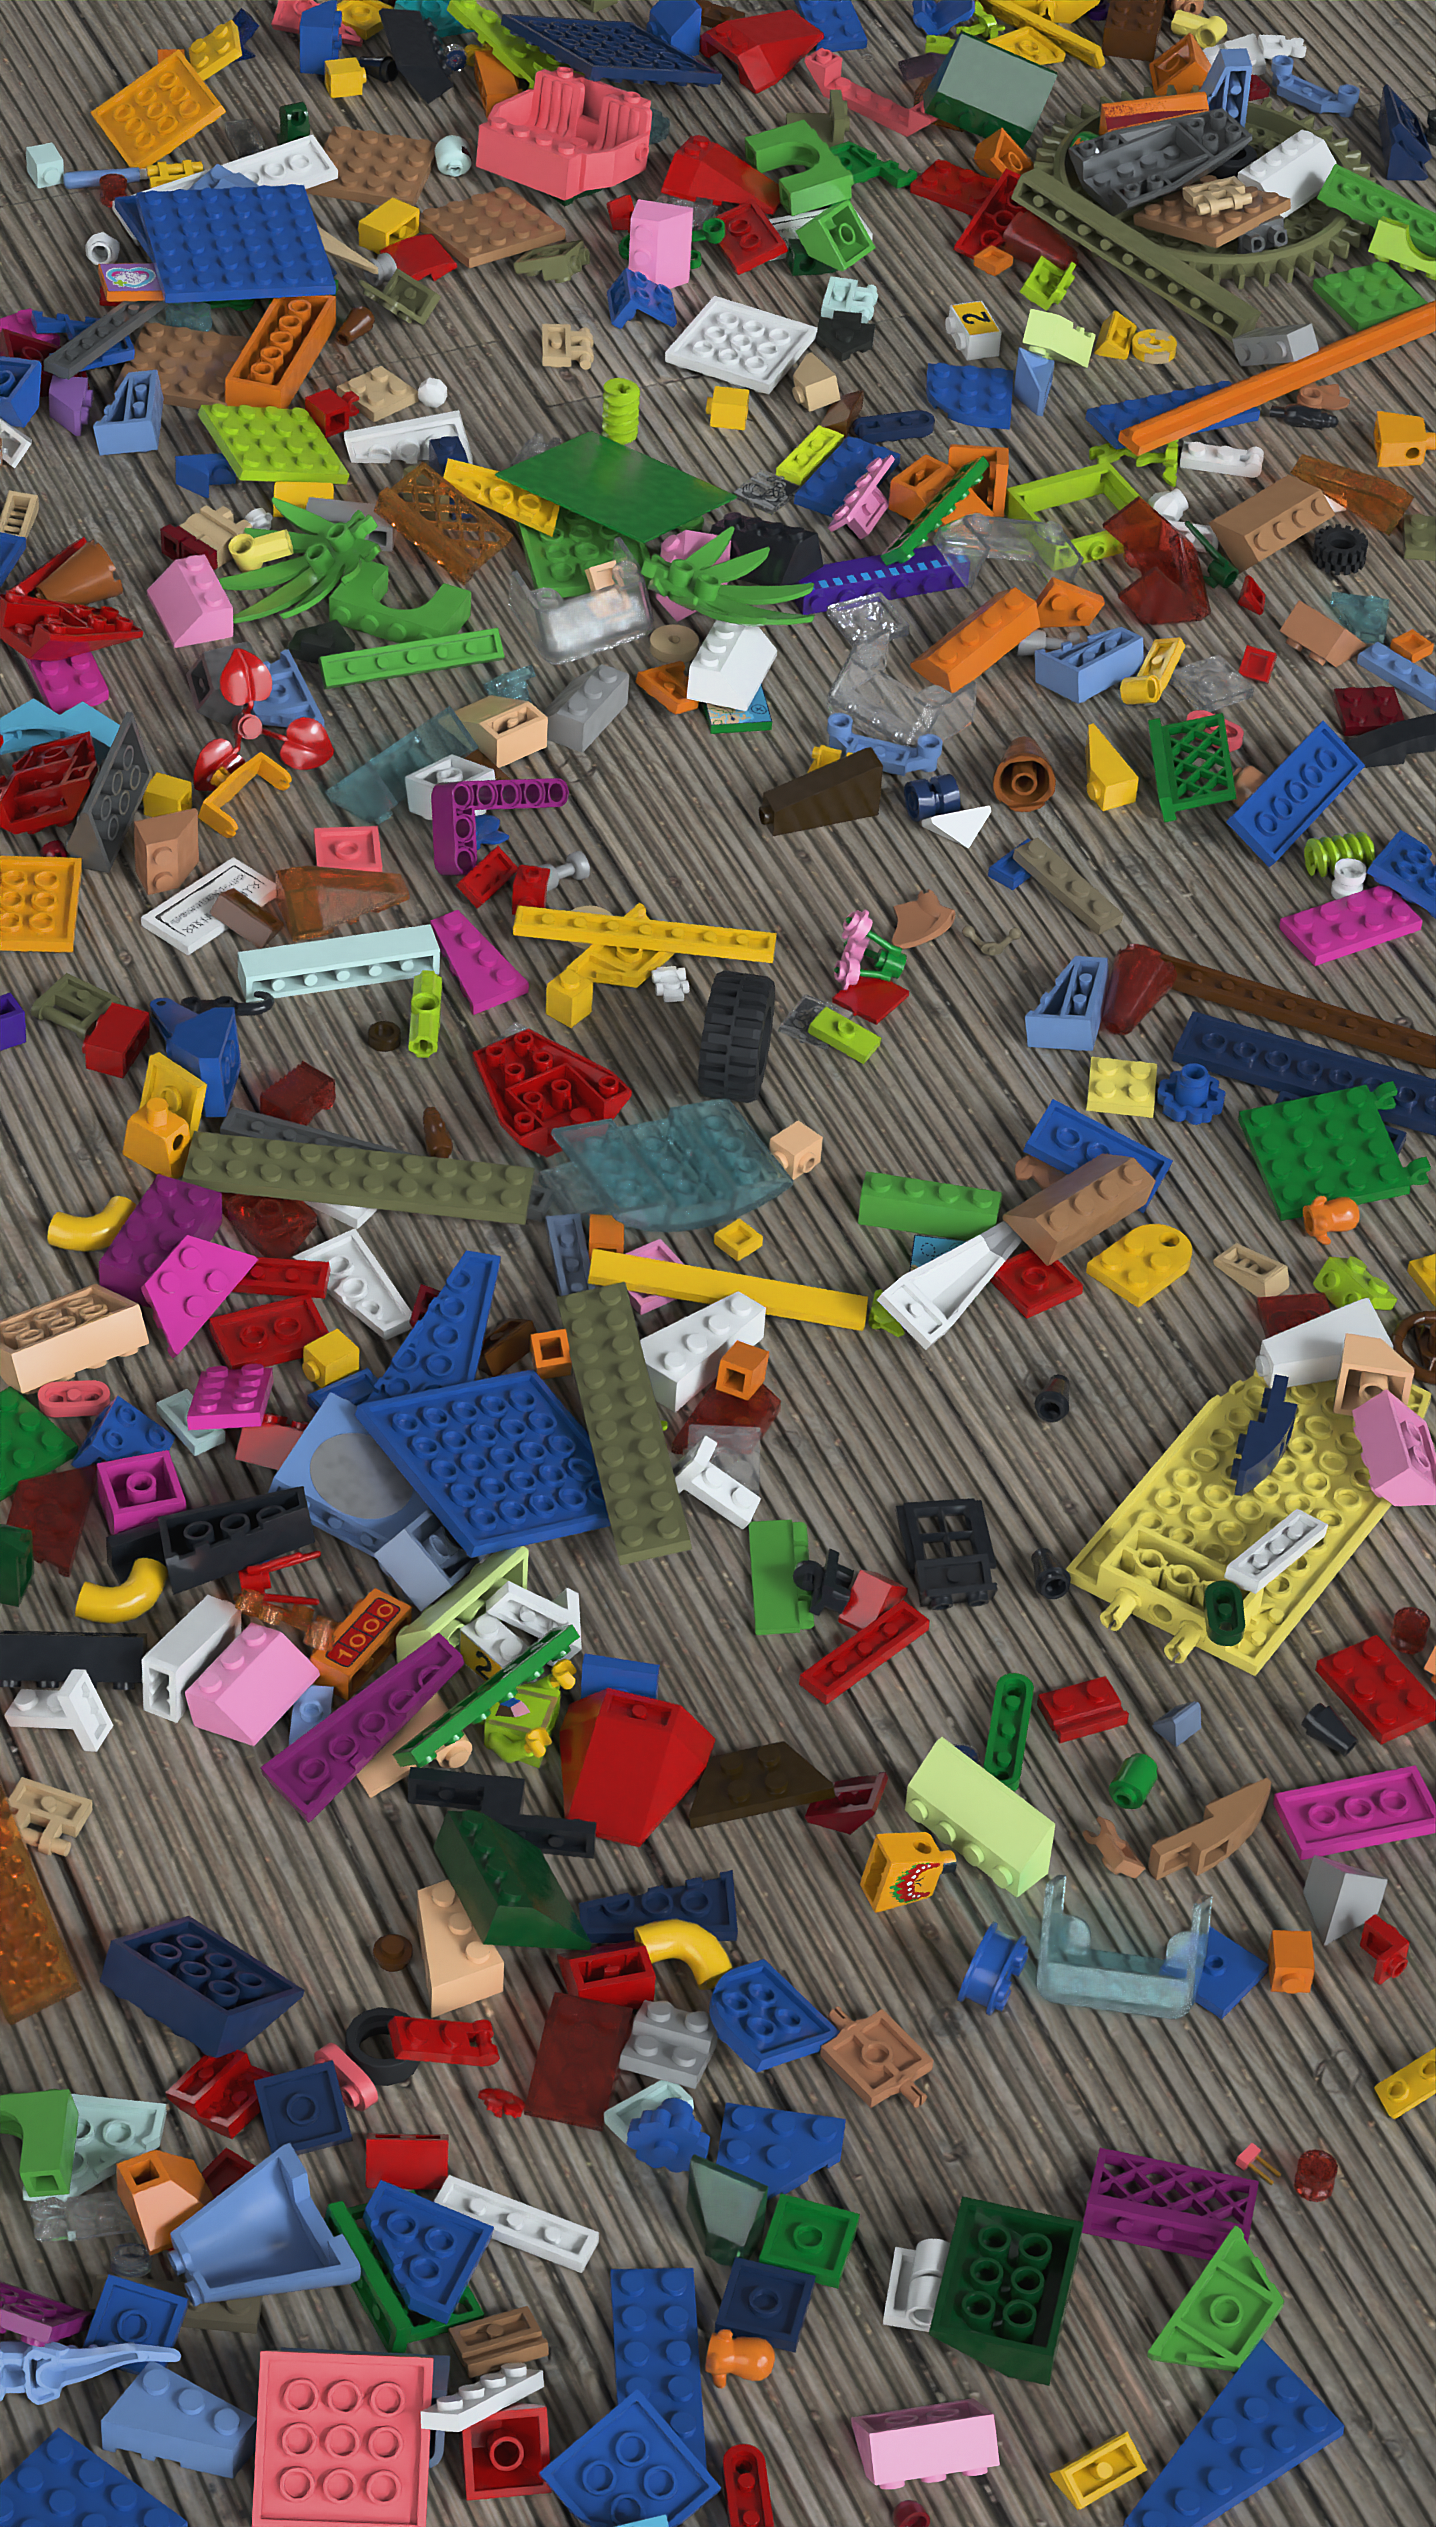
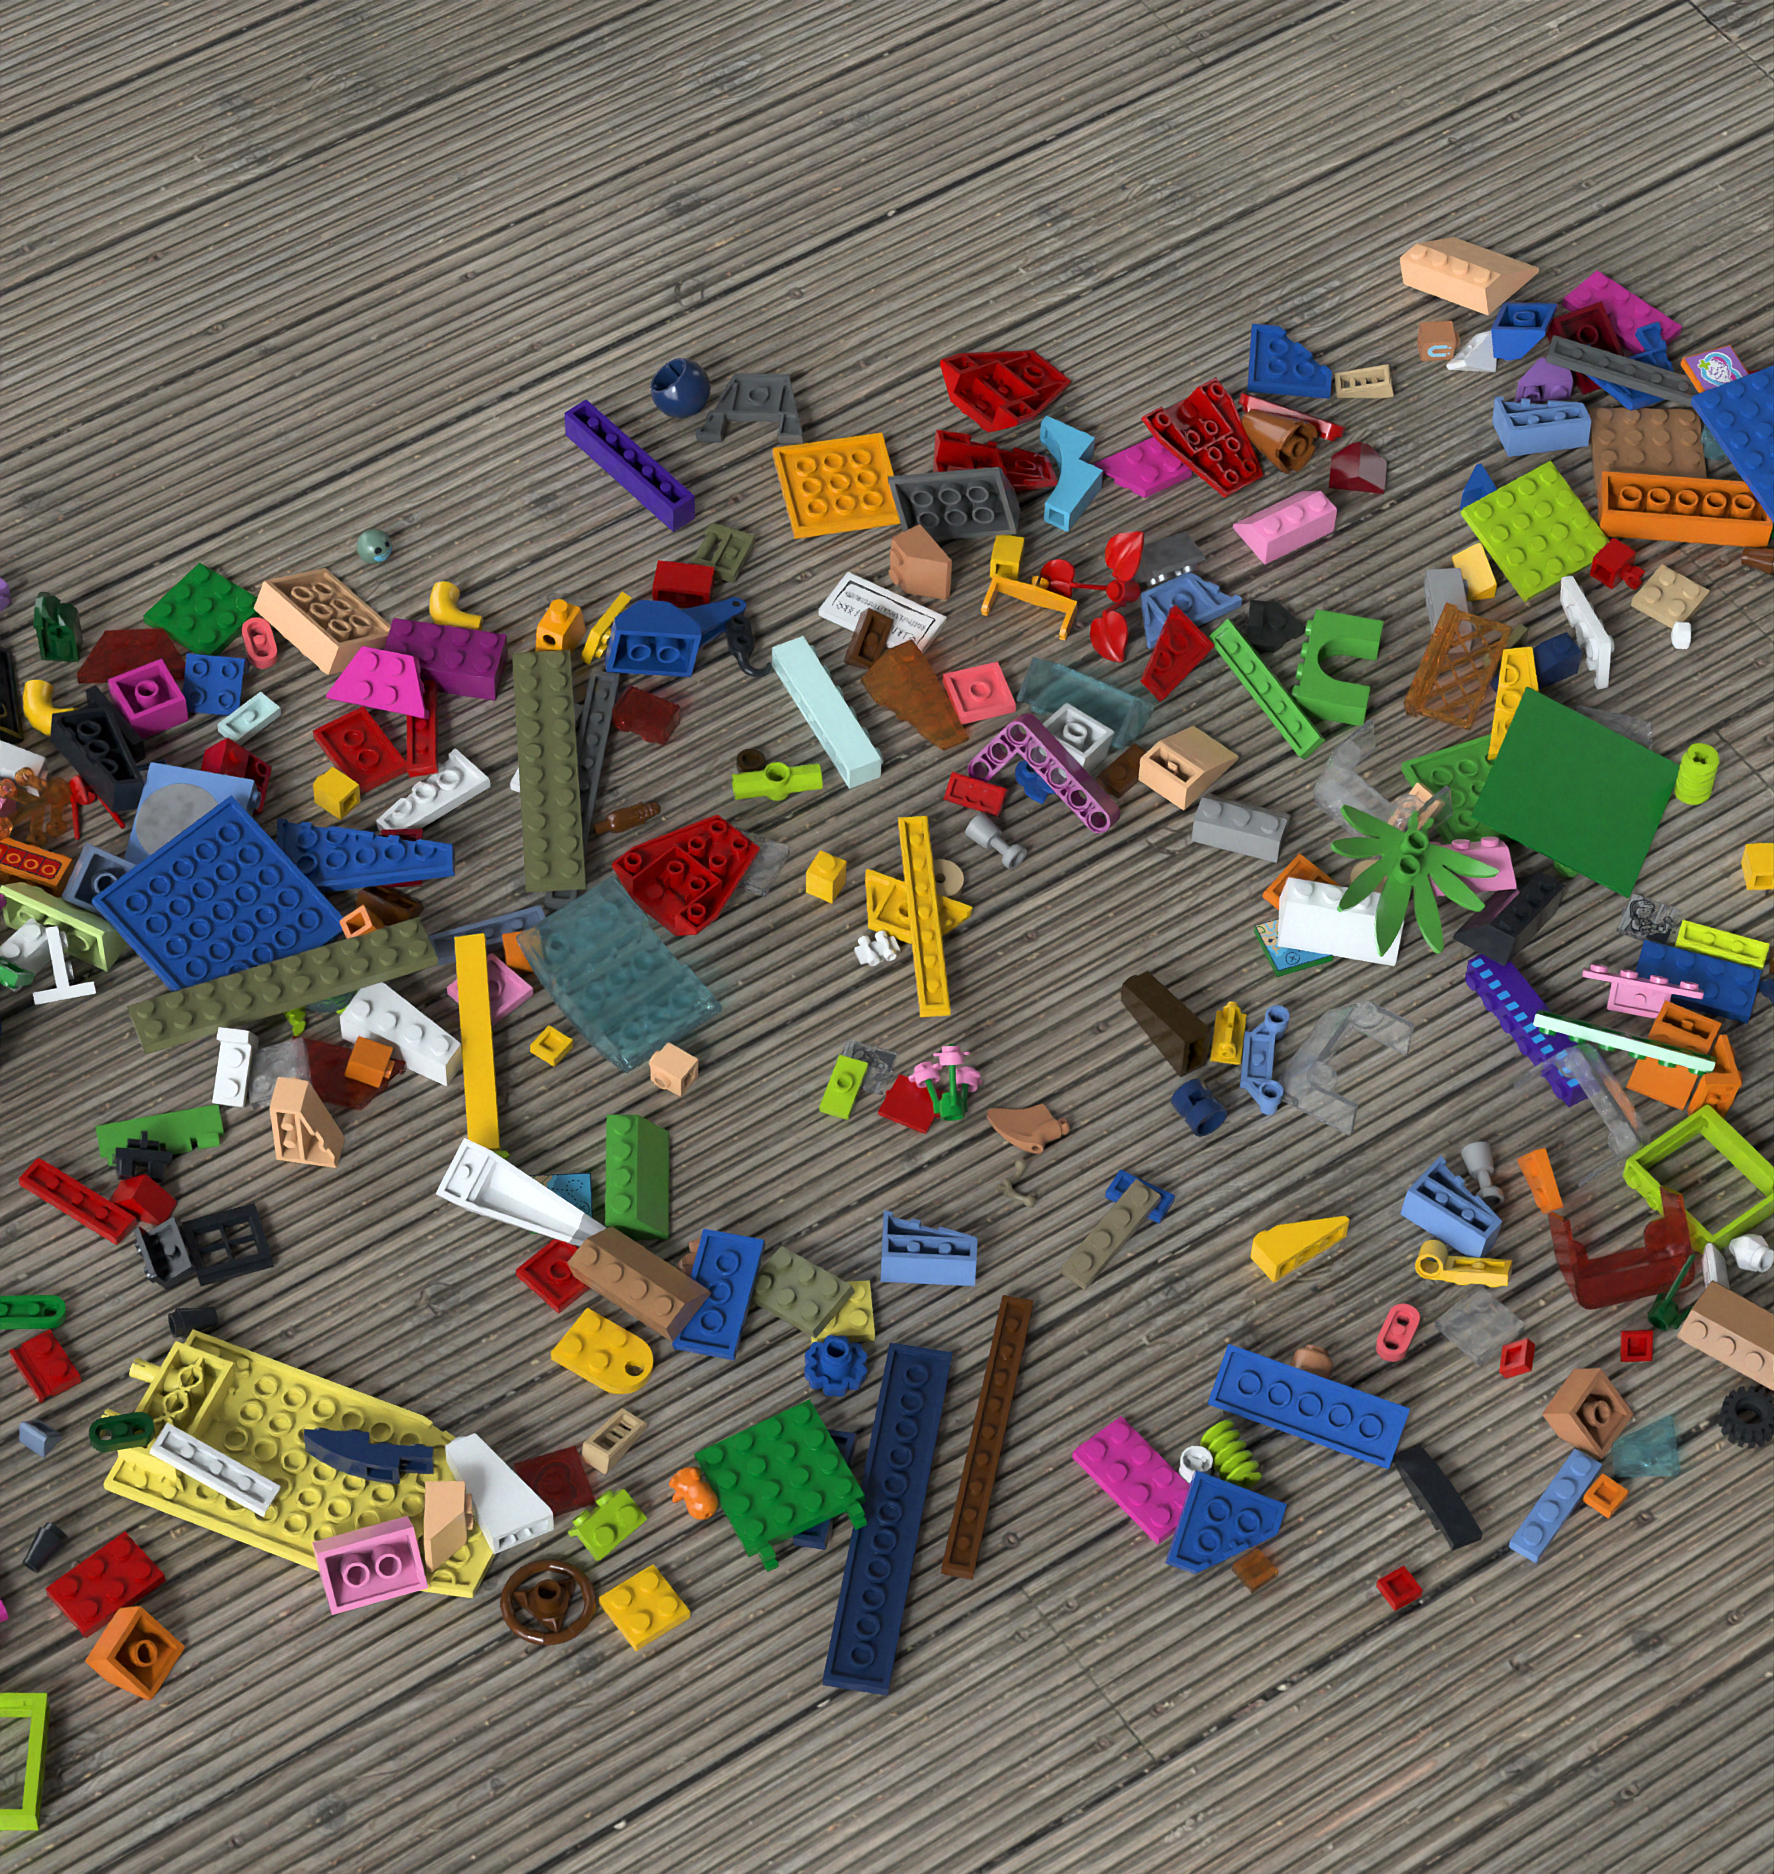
camera: 80 degrees right, 10 degrees up
(132, 549) = (1358, 469): none -> dark red slope
(203, 534) = (1382, 514): hips -> none
(230, 1397) = (256, 729): dark pink plate -> none
(251, 552) = (1373, 550): light yellow piece -> none
(259, 519) = (1427, 546): white plate -> none
(269, 1223) = (489, 728): clear red wing -> none
(327, 554) = (1372, 598): bright green plant -> none
(348, 706) = (1175, 654): none -> red wing
(353, 1388) = (300, 807): blue tile -> none
(479, 967) = (862, 811): dark pink wing -> none
(511, 684) = (1250, 768): clear light blue slope -> none
(530, 887) = (959, 819): red bracket -> none
(736, 1036) = (766, 986): black tyre -> none
(820, 1431) = (303, 1125): none -> light nougat wedge
(866, 616) = (1463, 1025): clear plate -> none
(959, 826) = (1177, 1138): white slope -> none
(979, 640) = (1444, 1110): orange slope -> none
(1024, 776) = (1262, 1173): dark orange cone -> none
(1053, 1400) = (406, 1301): black cone -> none
(1111, 1093) = (800, 1292): none -> olive plate
(1135, 987) = (961, 1298): clear red cone -> none
(1169, 767) = (1320, 1293): green fence -> none
(1366, 708) = (1488, 1469): dark red plate -> none
(1410, 1630) = (176, 1592): clear red wheel -> none

